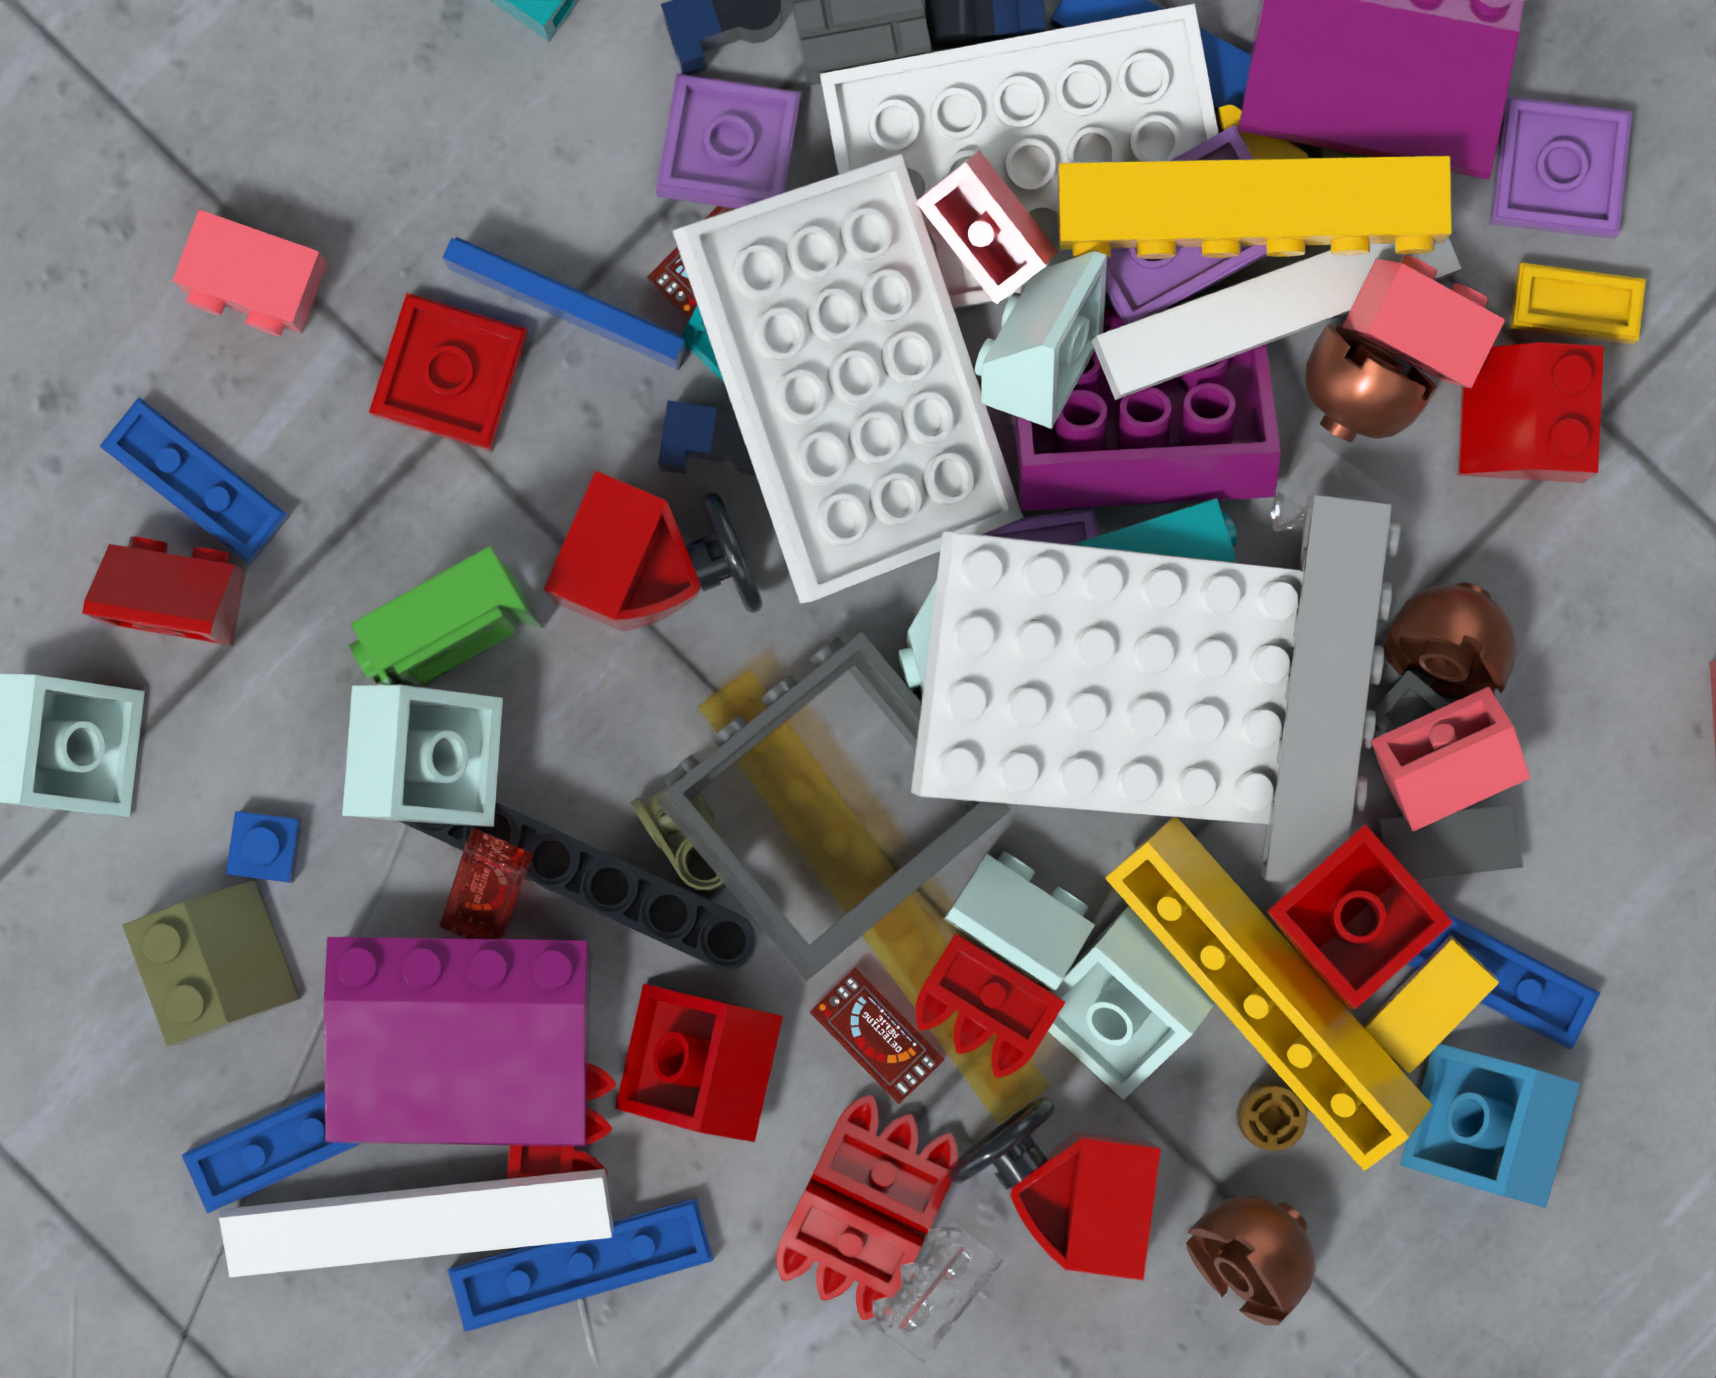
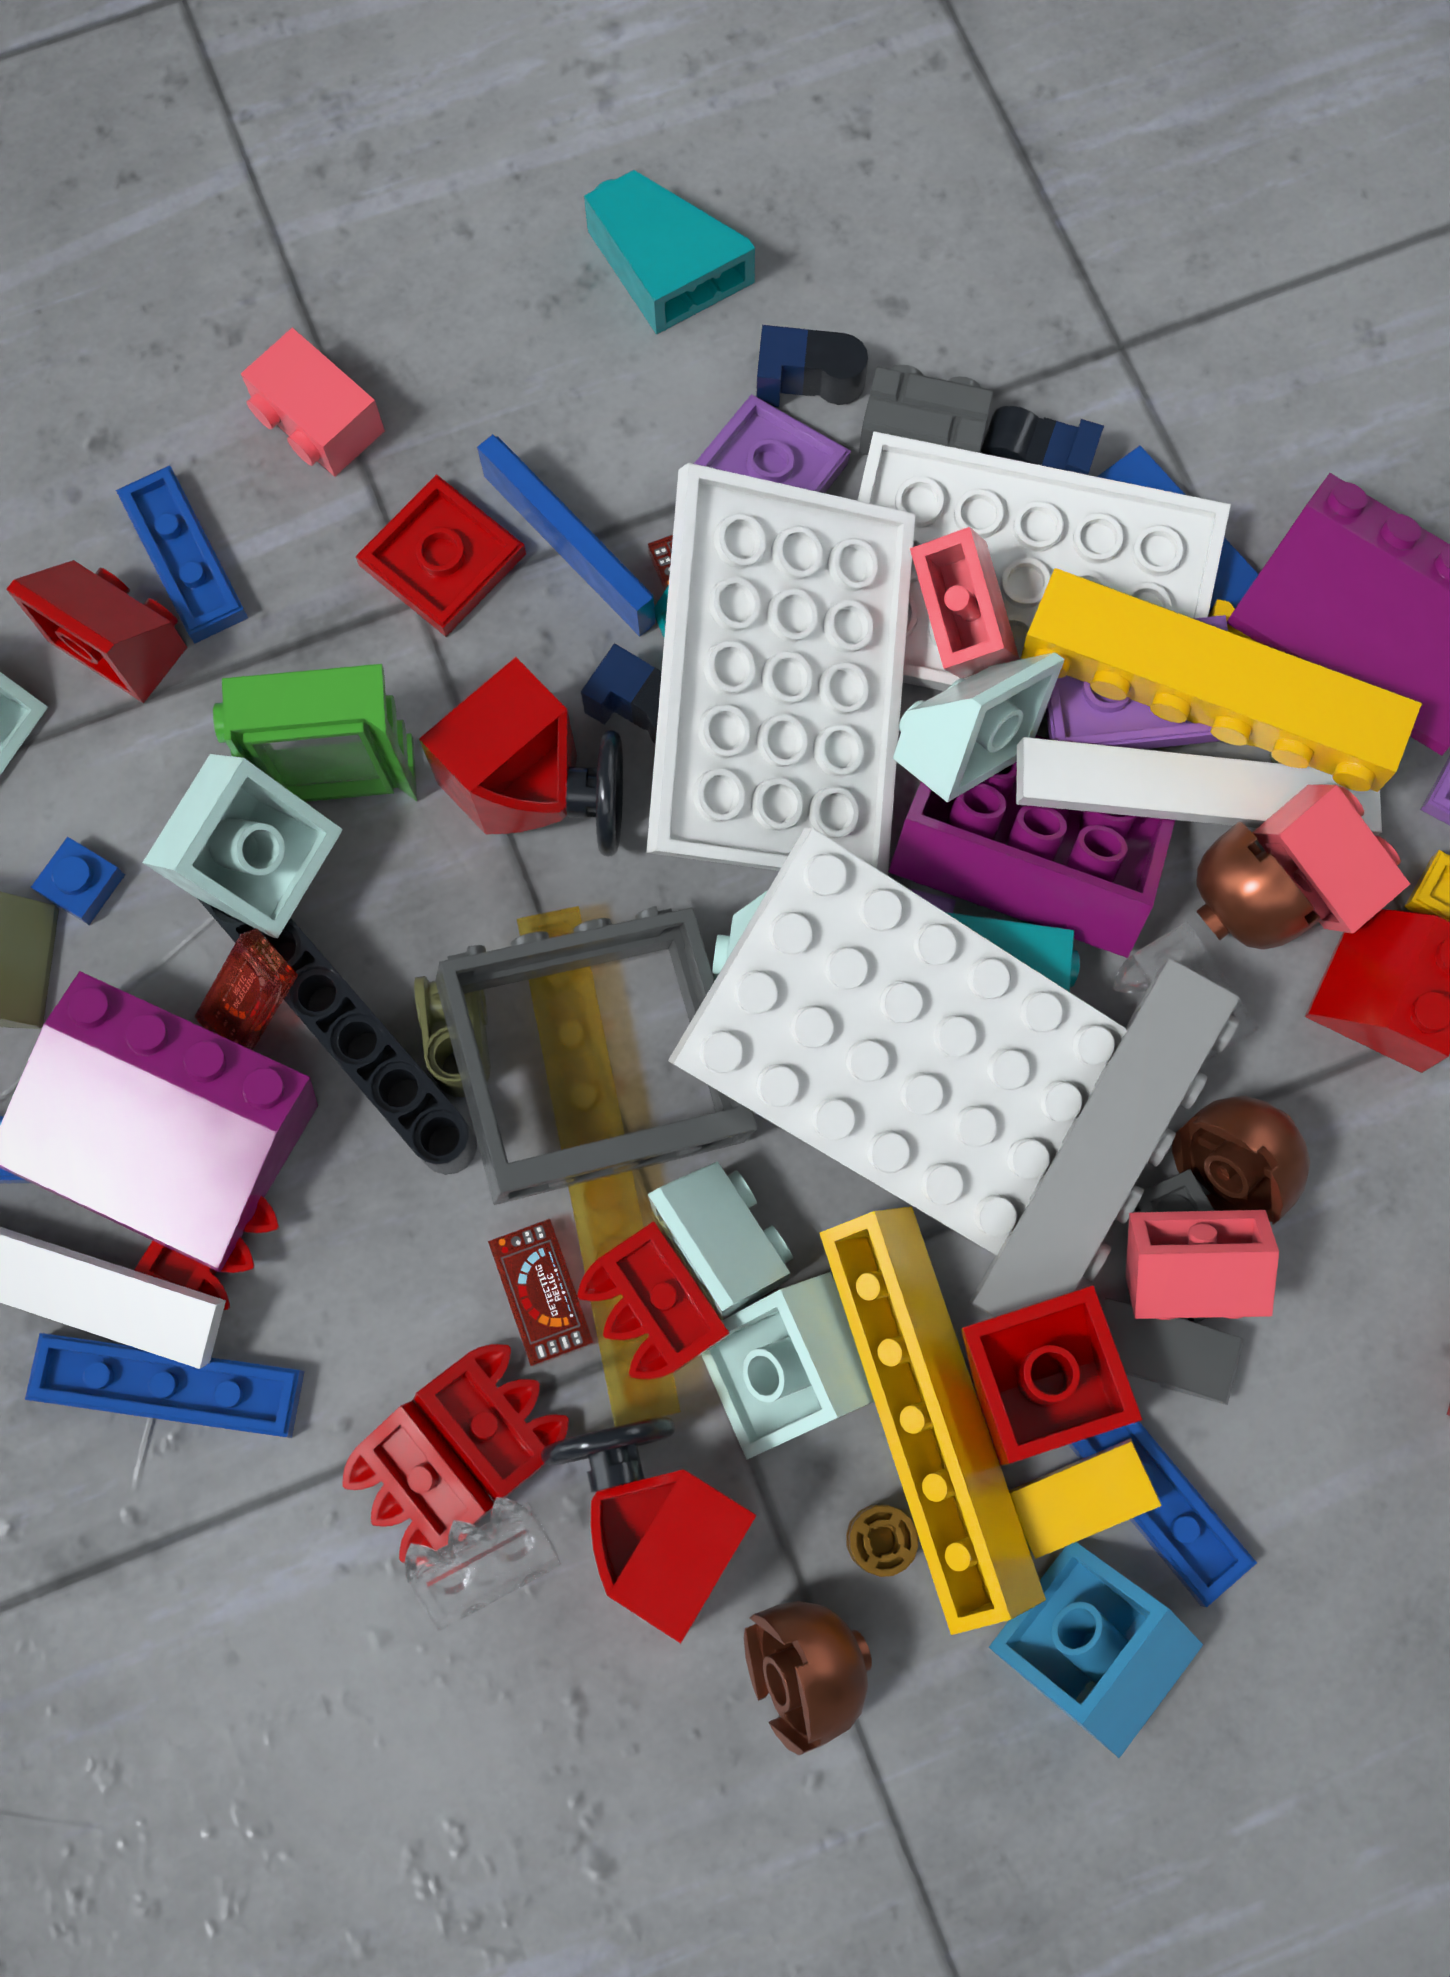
camera: 25 degrees right, 10 degrees down
(699, 1063) = (364, 1244): red slope -> none

